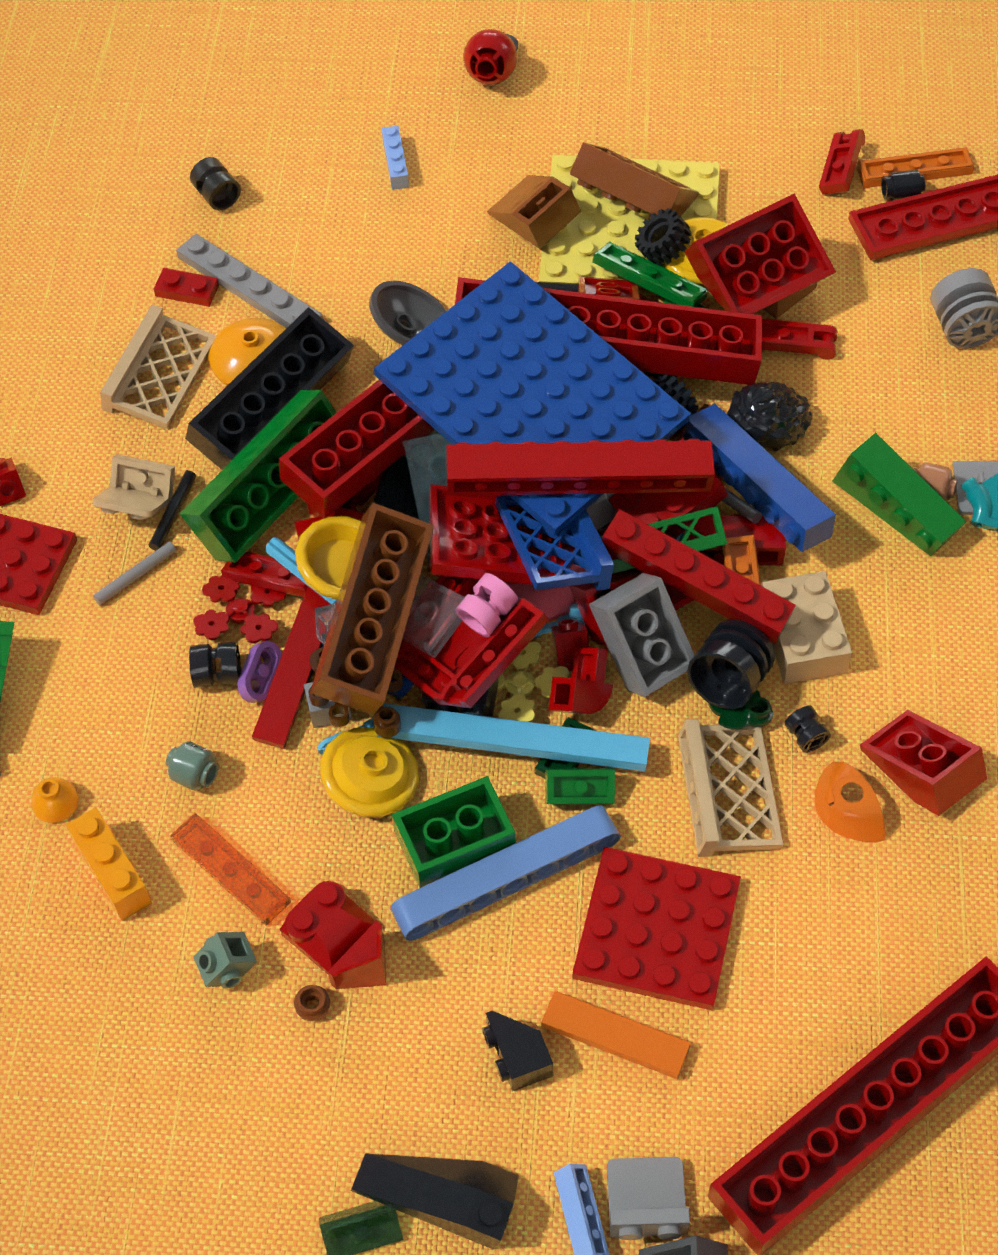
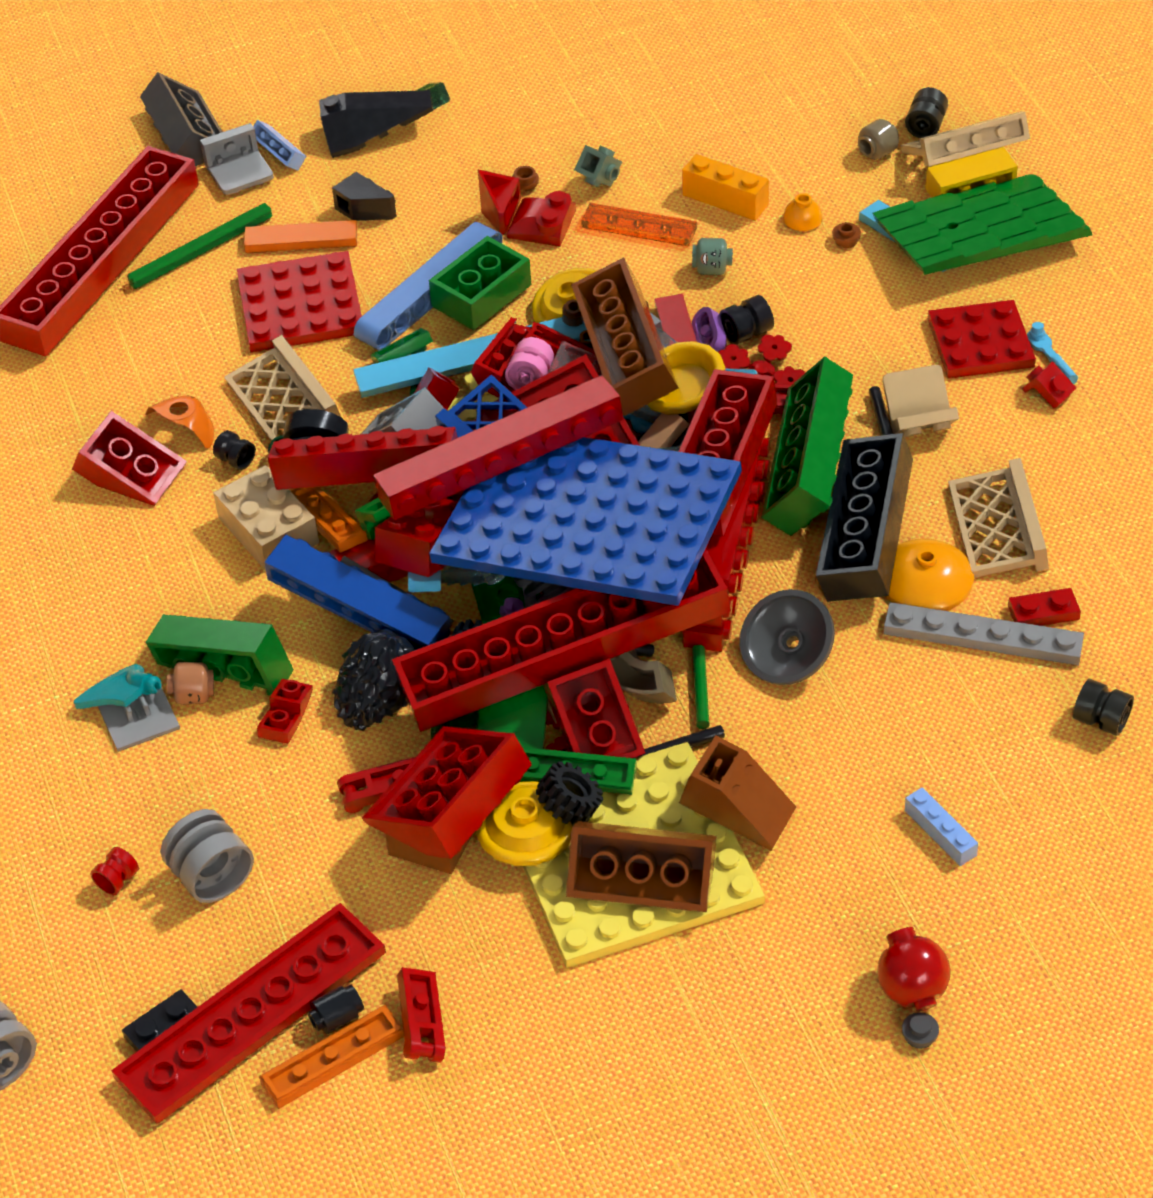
camera: 155 degrees right, 10 degrees down
(34, 755) = (846, 234): none -> dark orange plate
(134, 573) = (873, 367): light grey bar -> none
(741, 1075) = (199, 246): none -> green axle
(855, 432) = (285, 711): none -> red slope

